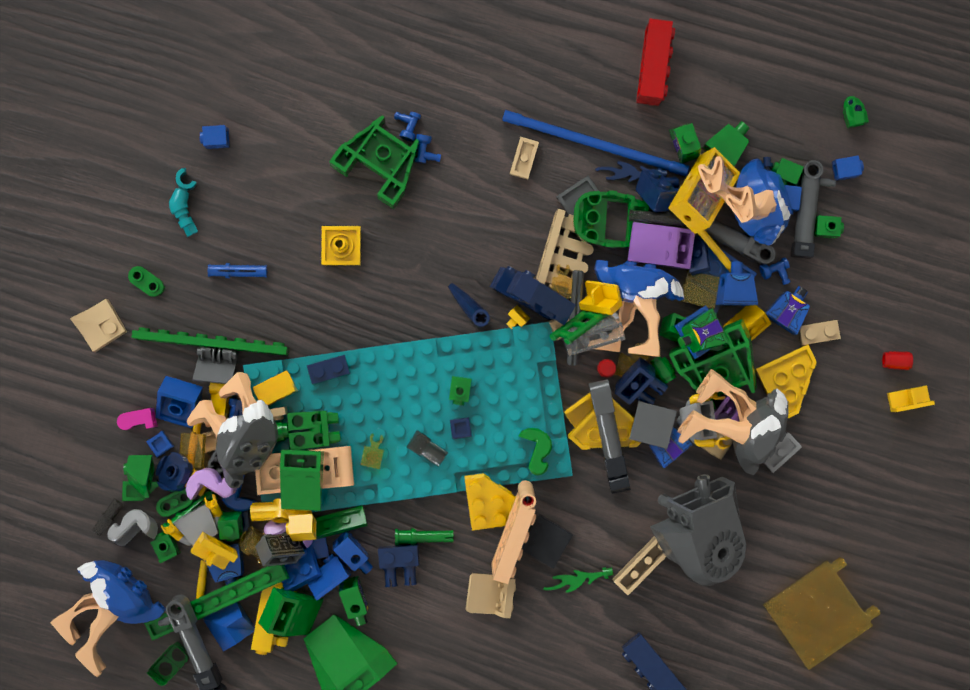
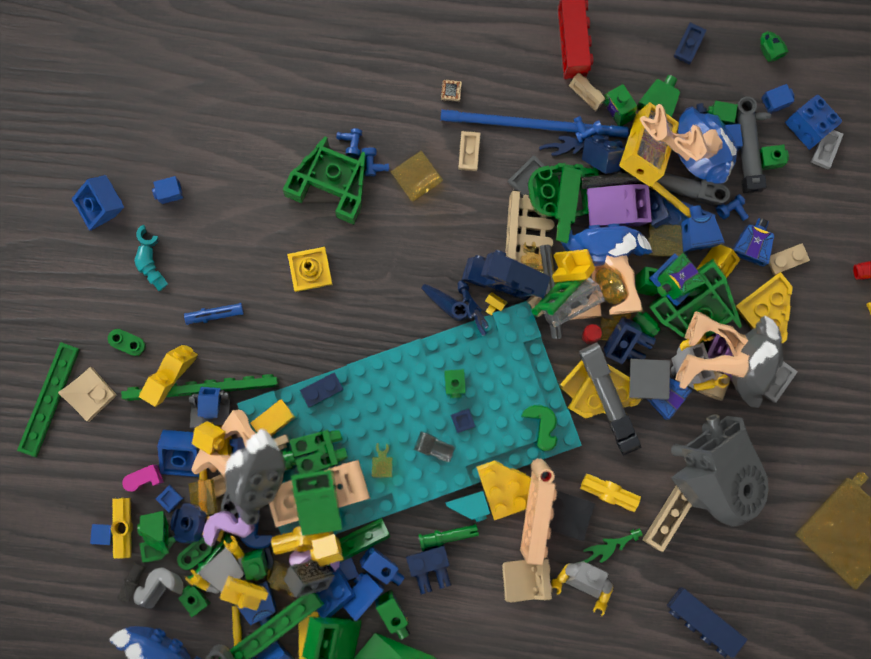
camera: 15 degrees left, 5 degrees down
(59, 322) = (48, 400): none -> green tile
(87, 465) = (101, 534): none -> blue tile
(111, 450) = (122, 541): none -> yellow piece
(143, 134) = (97, 201): none -> blue slope
(183, 320) = (170, 370): none -> yellow arch
(209, 394) = (208, 437): none -> yellow brick
(215, 359) = (208, 402): none -> blue brick
(451, 512) = (471, 506): none -> teal slope
(466, 173) = (416, 176): none -> clear yellow plate
(494, 319) = (472, 308): none -> dark blue piece
(519, 92) = (451, 90): none -> tile
(549, 606) = (587, 579): none -> light grey torso
(590, 527) = (610, 492): none -> yellow piece
(610, 231) = (567, 201): none -> green piece
(634, 325) = (611, 285): none -> clear yellow dish
(642, 164) = (583, 133): none -> blue piece
(658, 125) = (587, 91): none -> tan plate
(771, 92) = (689, 43): none -> dark blue plate
(878, 198) = (813, 121): none -> blue bracket
(885, 228) = (827, 149): none -> light grey plate

